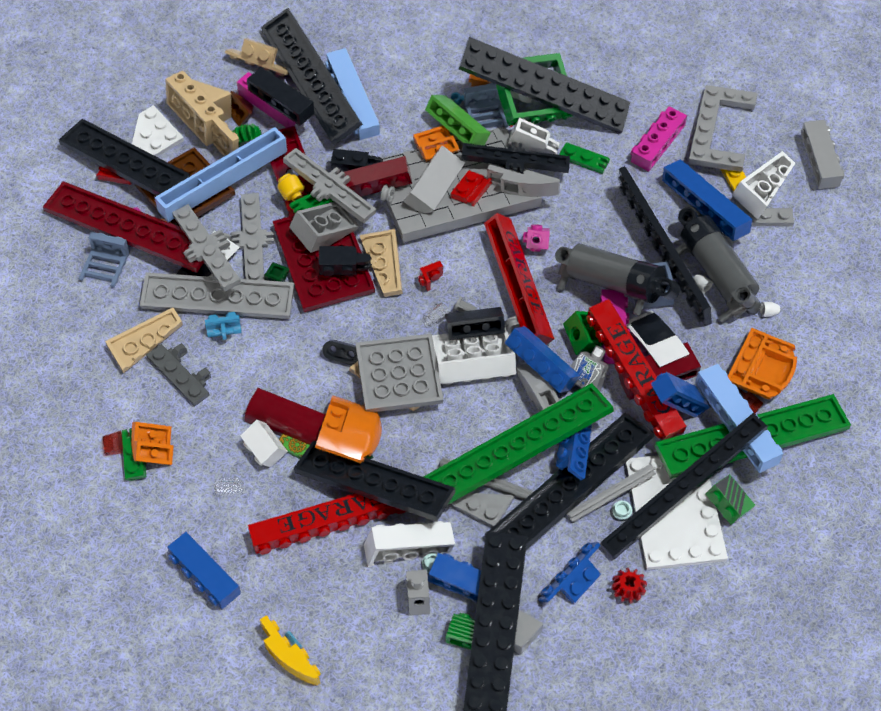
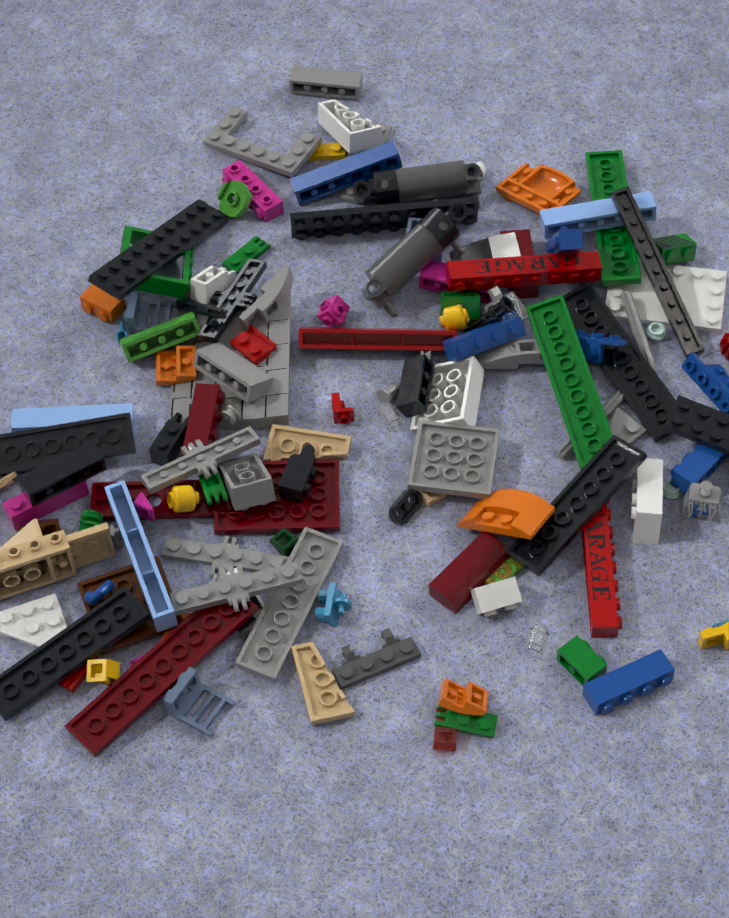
camera: 70 degrees left, 5 degrees down
(114, 188) = (102, 671): none -> yellow brick
(179, 160) = (93, 598): none -> blue arm
(215, 528) = (581, 660): none -> green brick
(274, 164) = (143, 507): none -> dark pink slope
(492, 137) = (201, 309): none -> black axle
(561, 331) = (455, 318): none -> yellow head
(568, 357) = (494, 313): none -> black pin
(639, 127) = (242, 200): none -> bright green plate

